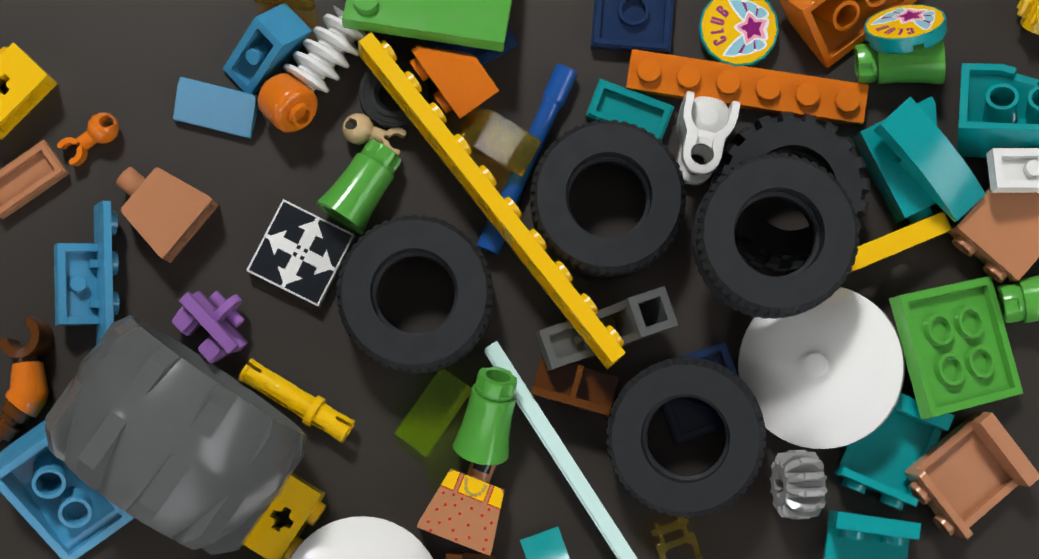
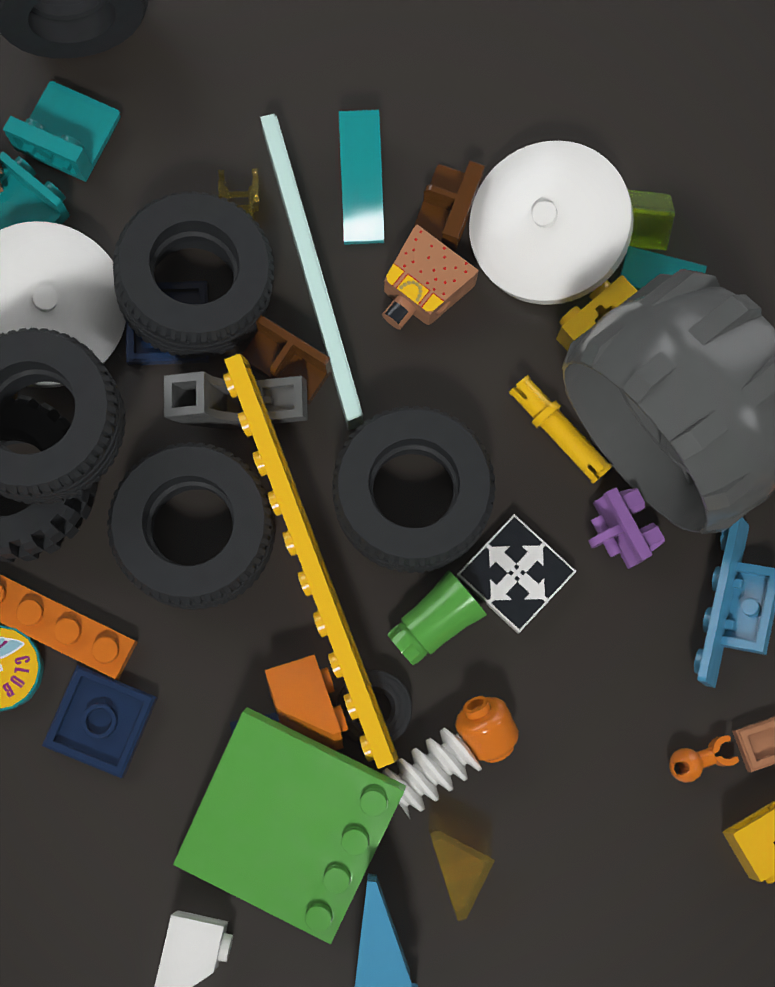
camera: 165 degrees left, 5 degrees down
(164, 209) = (644, 658): nougat torso -> none
(215, 107) = (563, 750): dark azure slope -> none
(266, 47) = (492, 796): dark azure slope -> none
(365, 131) = (415, 677): tan arm -> none
(434, 412) = (428, 374): clear neon green panel -> none
(488, 418) = (381, 345): bright green plant -> none
(499, 140) = (284, 622): clear yellow slope -> none
(552, 101) = (213, 652): blue piece -> none
(622, 104) = (140, 617): teal tile -> none
(702, 131) = (71, 564): white piece -> none
(798, 484) = (104, 203): light grey gear -> none

